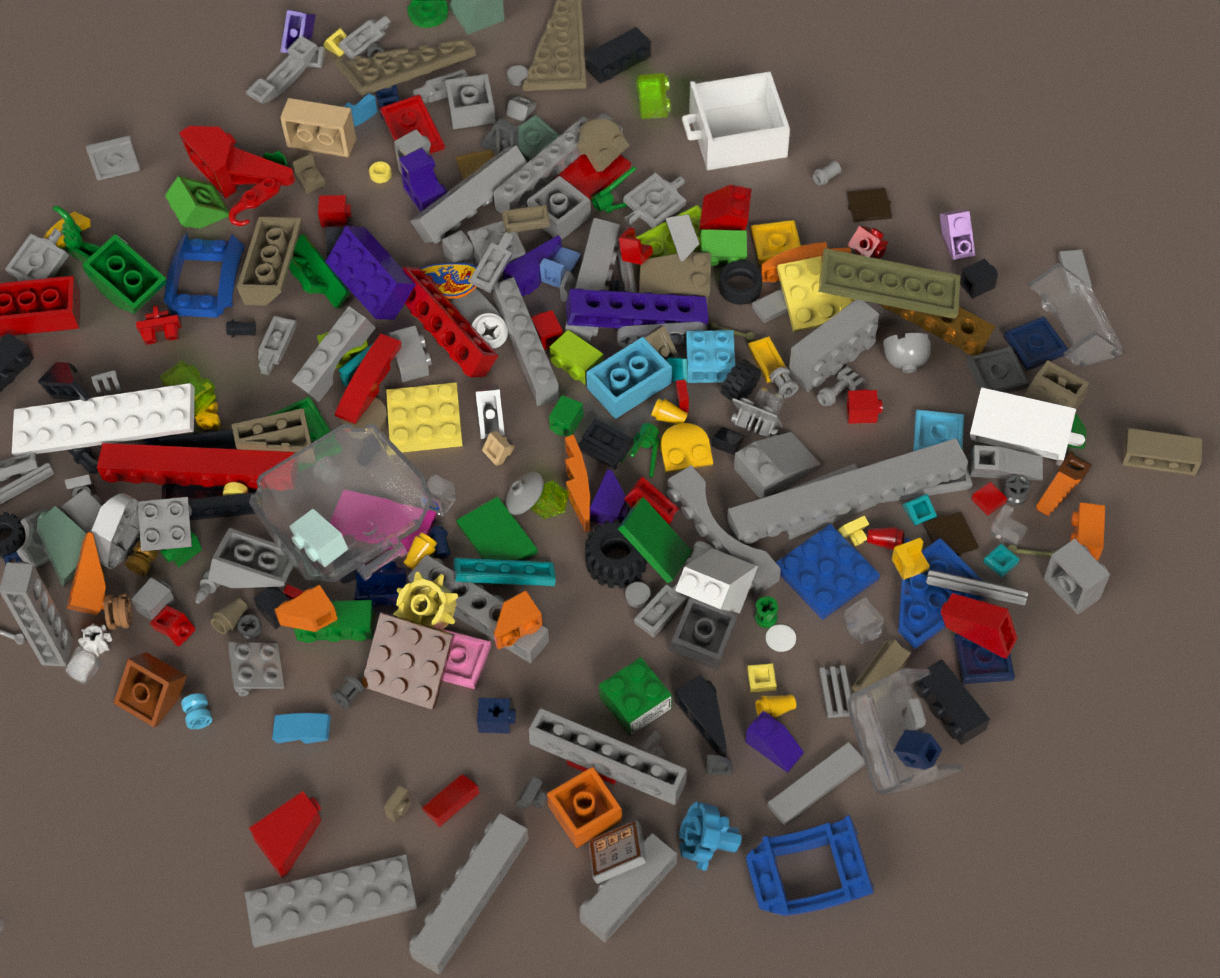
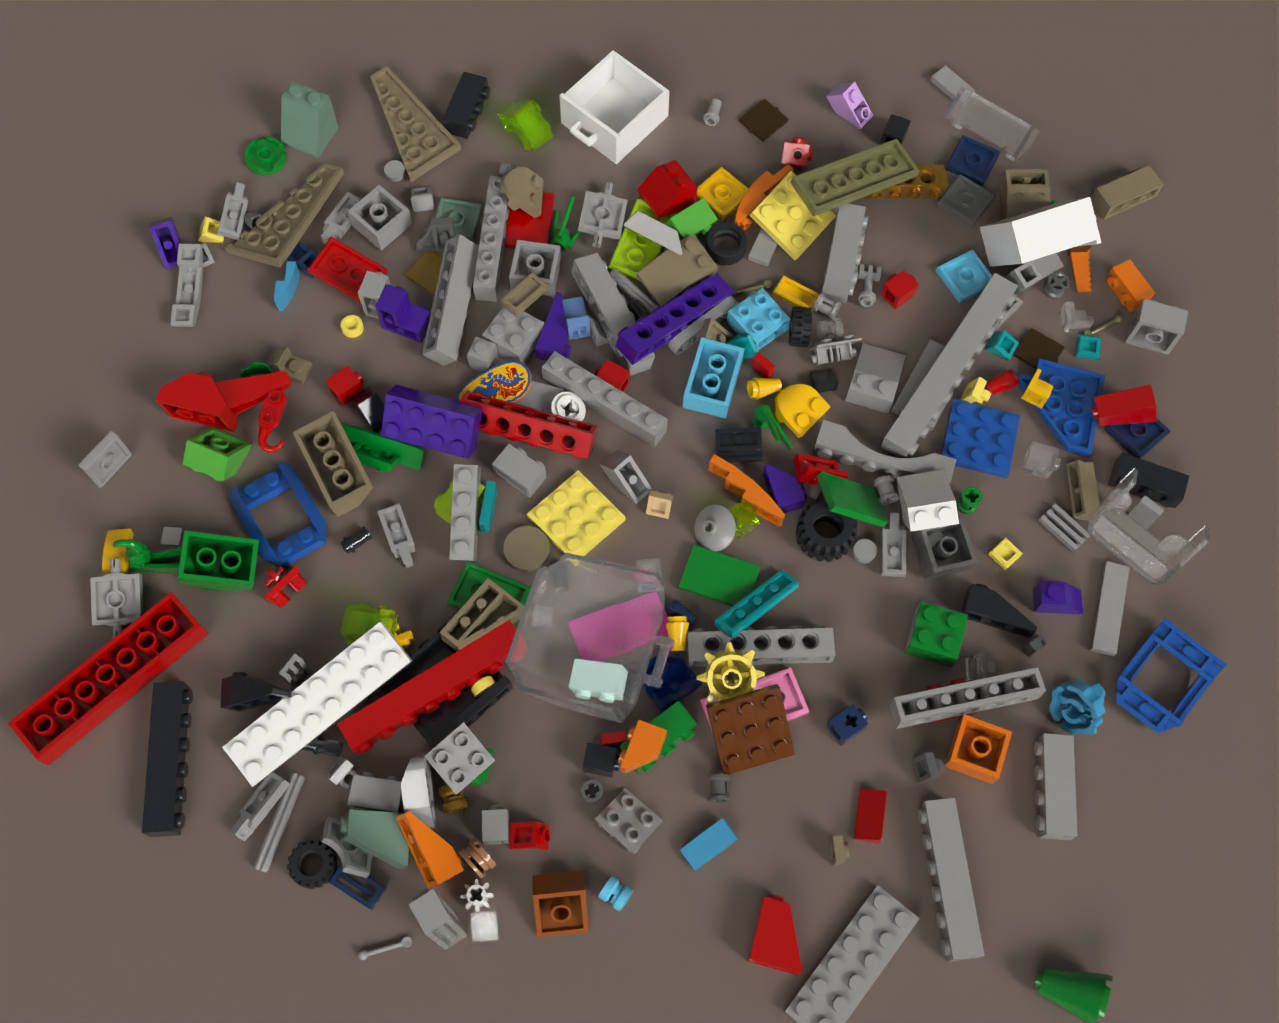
camera: 40 degrees left, 10 degrees up
(206, 588) = (525, 774): light grey bar -> none
(228, 617) = (569, 796): dark tan cone -> none
(249, 562) = (553, 739): light grey slope -> none
(318, 127) = (269, 318): tan brick -> none
(367, 378) = (509, 515): red slope -> none
(493, 263) = (533, 350): light grey hinge -> none
(517, 618) = (808, 636): orange slope -> none
(566, 416) = (690, 442): green brick -> none
(574, 356) = (655, 386): lime brick -> none
(617, 852) = (1031, 766): light grey tile -> none
(632, 249) = (628, 268): red panel -> none
(776, 705) = (1035, 570): yellow cone -> none
(780, 638) = (990, 513): white sticker -> none
(907, 352) = (898, 225): light grey cylinder -> none
(917, 749) = (1164, 534): dark blue brick -> none
(977, 587) = (1097, 380): light grey axle -> none
(989, 498) = (1041, 305): red tile -> none

